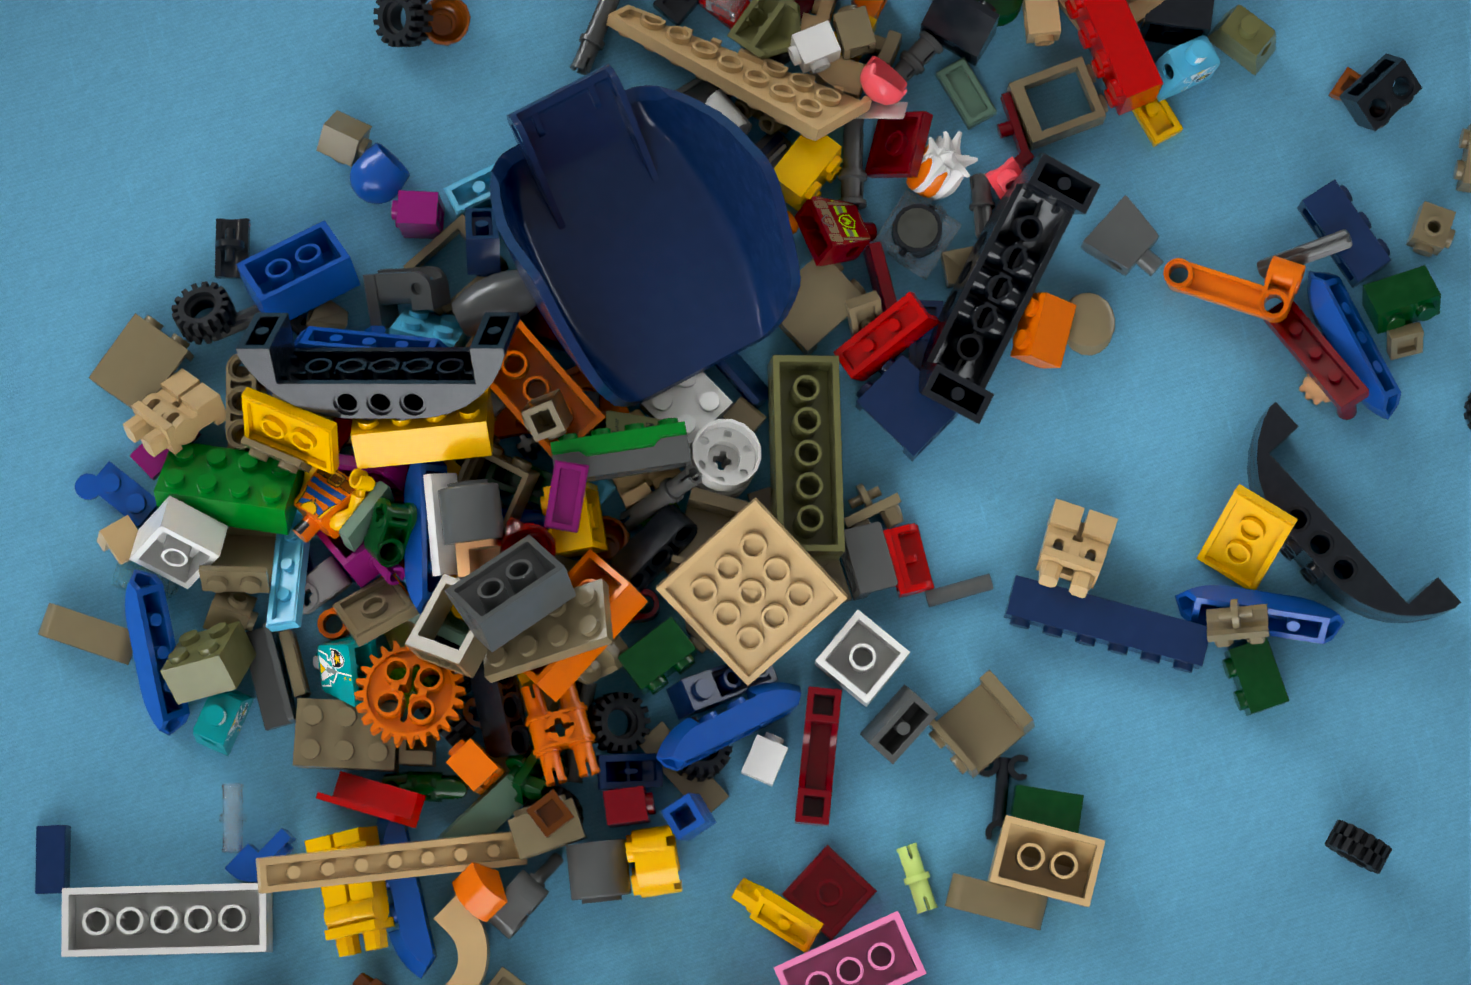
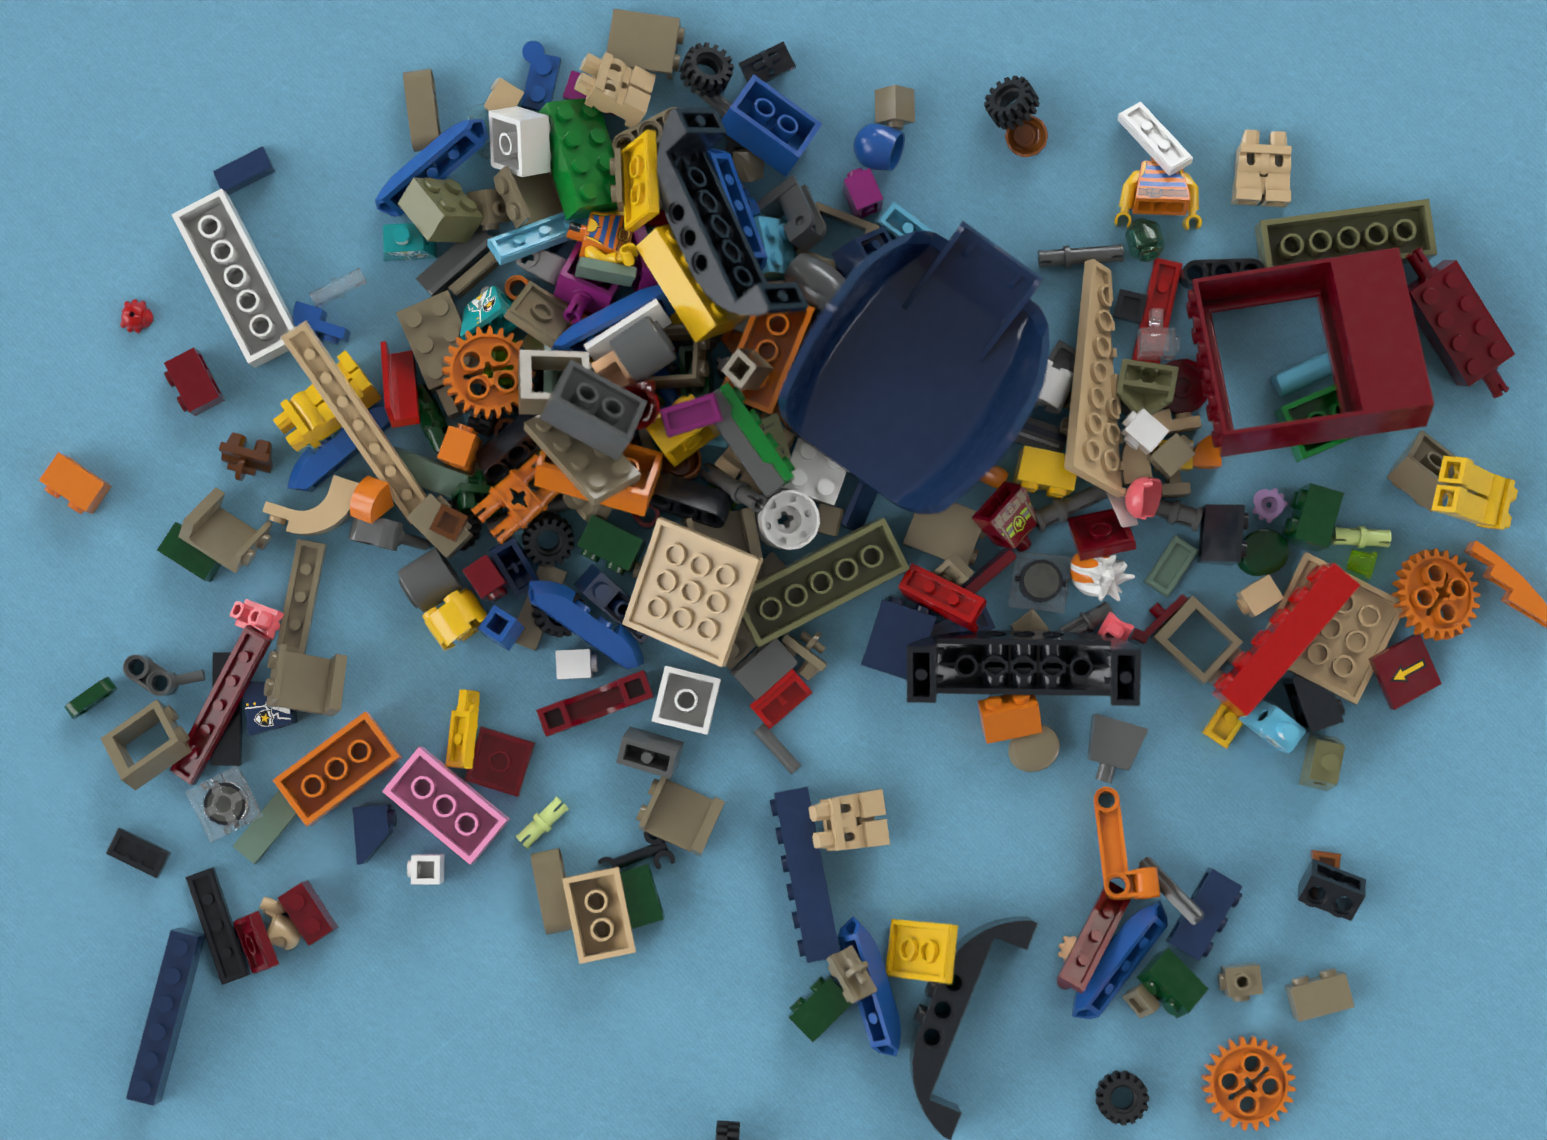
camera: 65 degrees right, 5 degrees up
(391, 525) = (604, 293): dark green piece -> none

